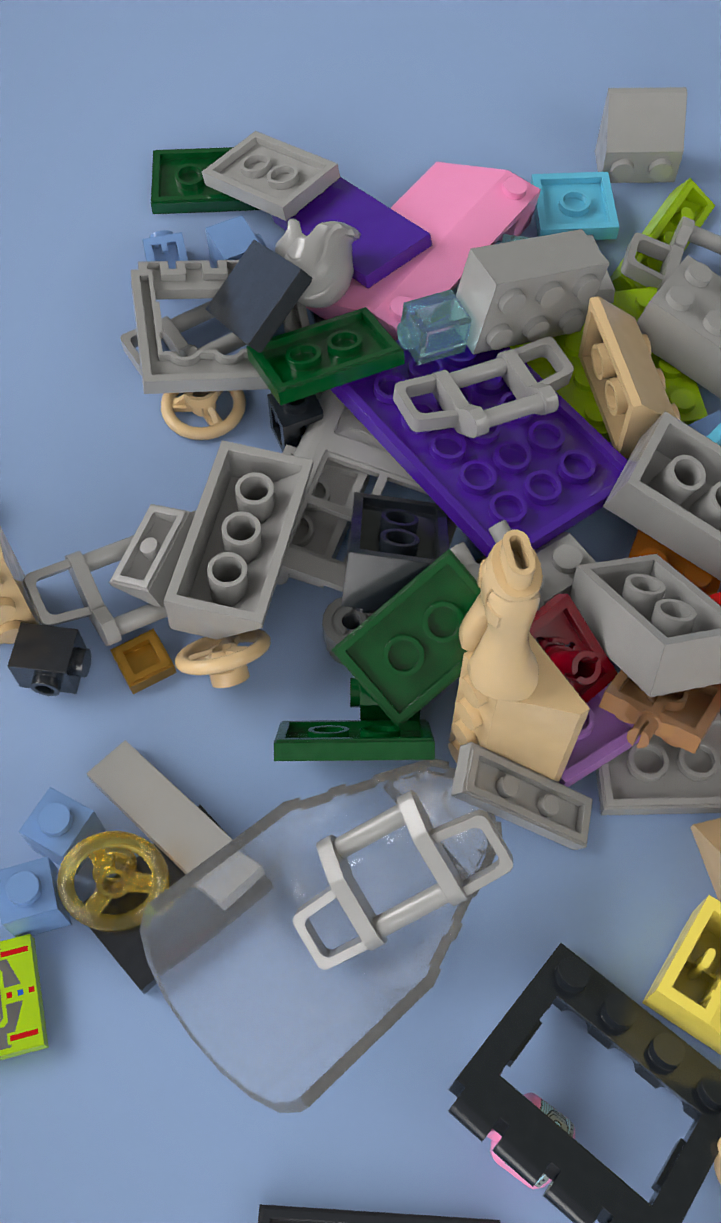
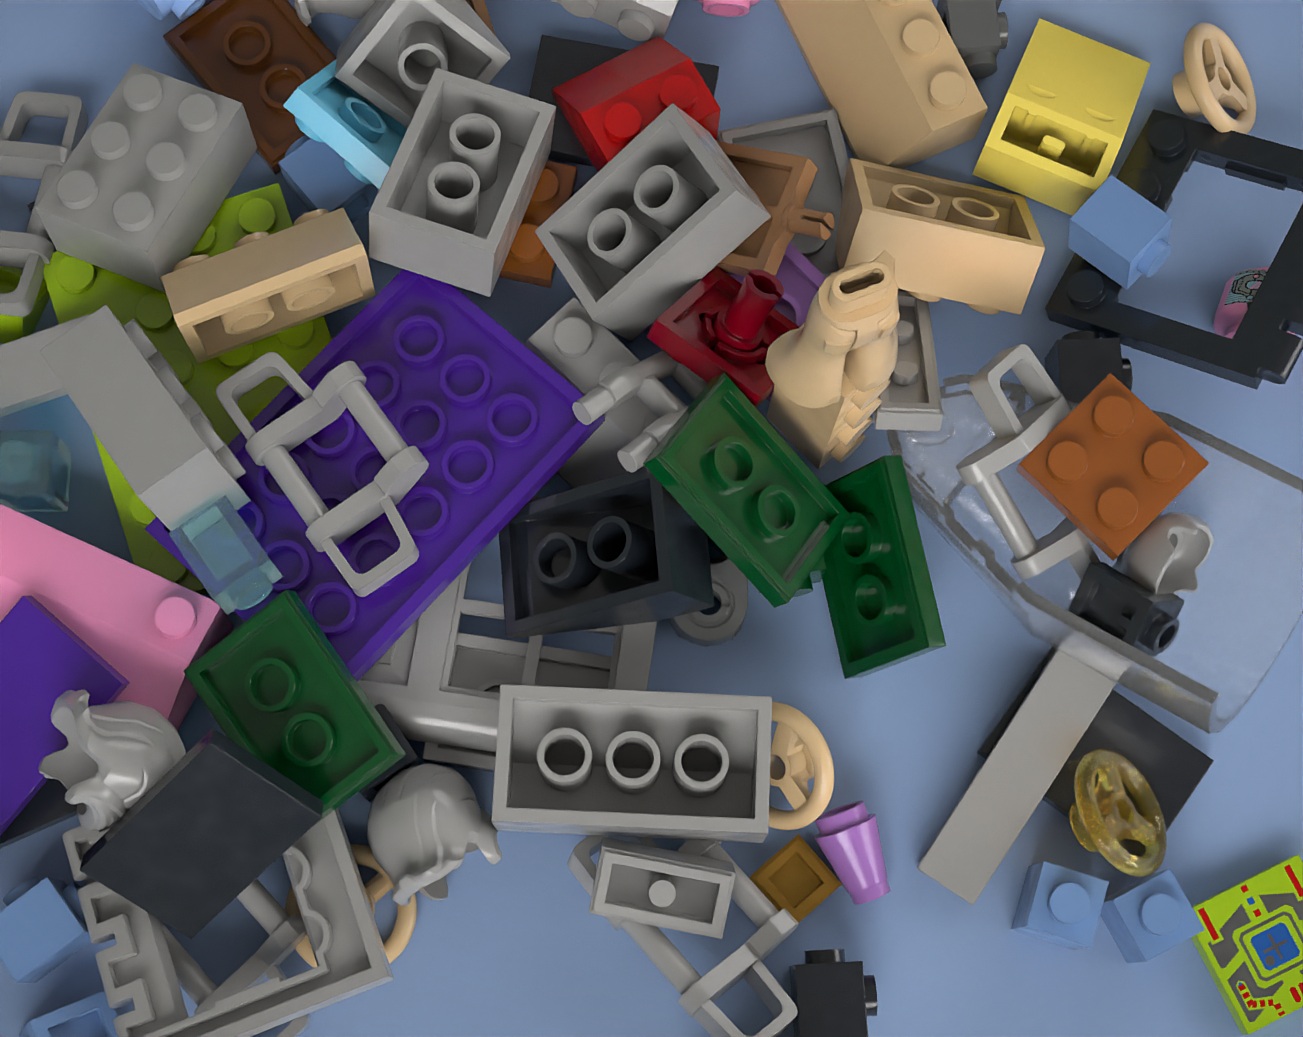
camera: 105 degrees left, 15 degrees up
(151, 698) = (854, 850): none -> medium lavender cone
(234, 421) = (424, 827): none -> light grey hair
(265, 908) = (1127, 609): none -> black bracket
(309, 964) = (1169, 553): none -> light grey hair
(392, 920) = (1112, 466): none -> dark orange plate
(489, 960) = (1083, 362): none -> black brick
(615, 999) = (1120, 233): none -> medium blue brick
(633, 853) = (943, 234): none -> tan slope

